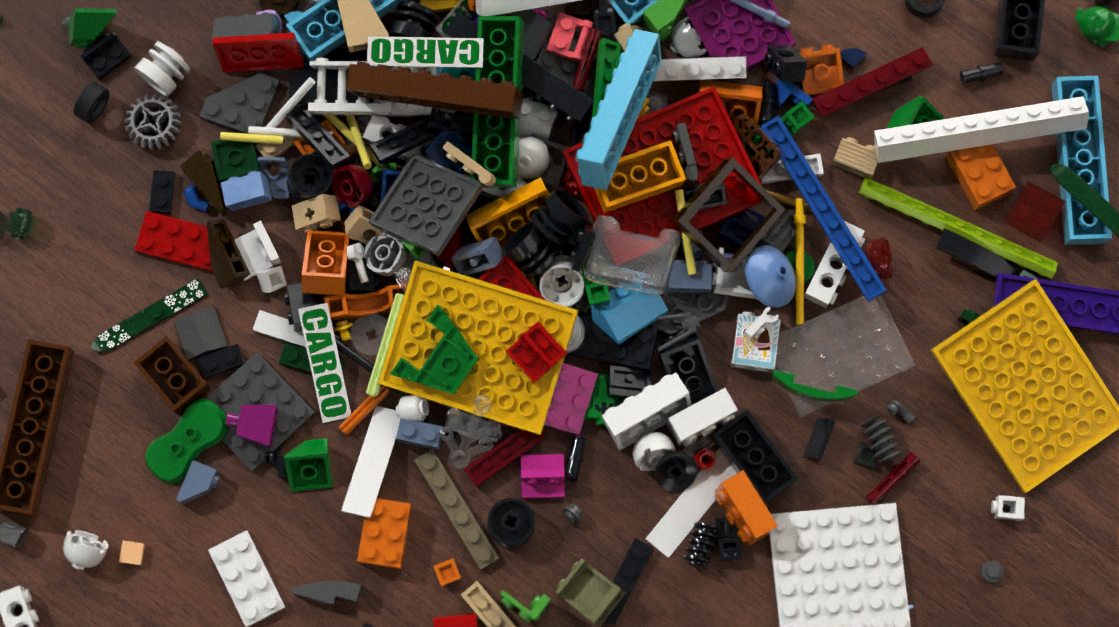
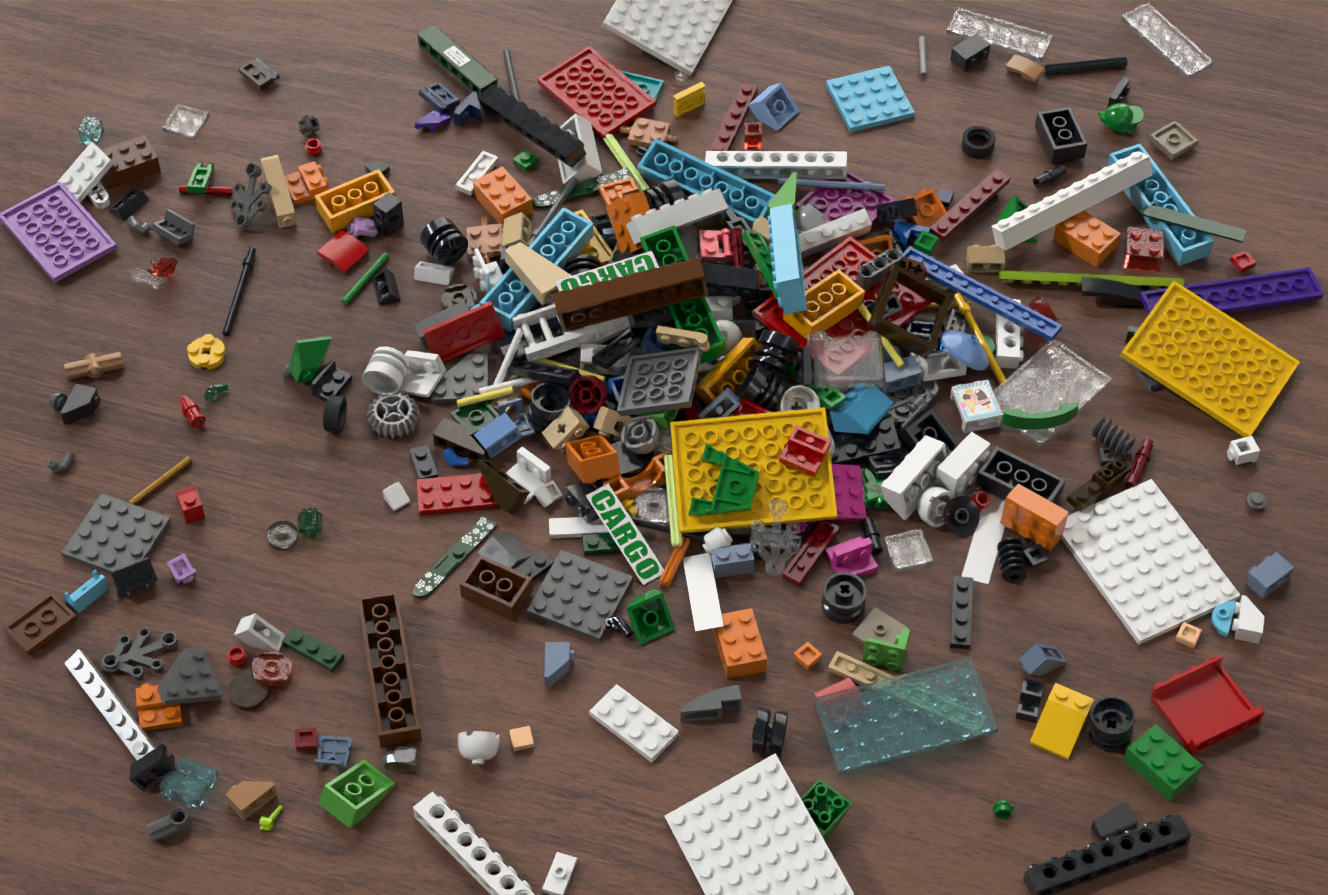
camera: 20 degrees left, 25 degrees down
(119, 223) = (396, 496): none -> white slope
(198, 86) = (424, 373): none -> white bracket
(198, 429) = (525, 649): green plate -> none
(255, 423) = (587, 595): magenta torso -> none
(356, 253) = (617, 444): white bar -> none
(359, 141) = (577, 365): light yellow bar -> none
(456, 509) = (791, 608): dark tan plate -> none
(532, 572) = (879, 627): none -> dark tan plate
(572, 514) = (892, 576): dark grey plate -> none
(589, 592) = (938, 626): olive panel -> none
(603, 490) = (908, 550): none -> clear plate
(686, 155) = (842, 265): dark grey hinge -> none
(729, 139) = (876, 269): none -> dark grey beam
(756, 327) = (973, 385): white plate -> none
(819, 438) = (1064, 455): black slope -> none
(835, 490) = (1099, 485): none -> dark brown slope
(897, 407) = (1116, 414): dark grey arm -> none

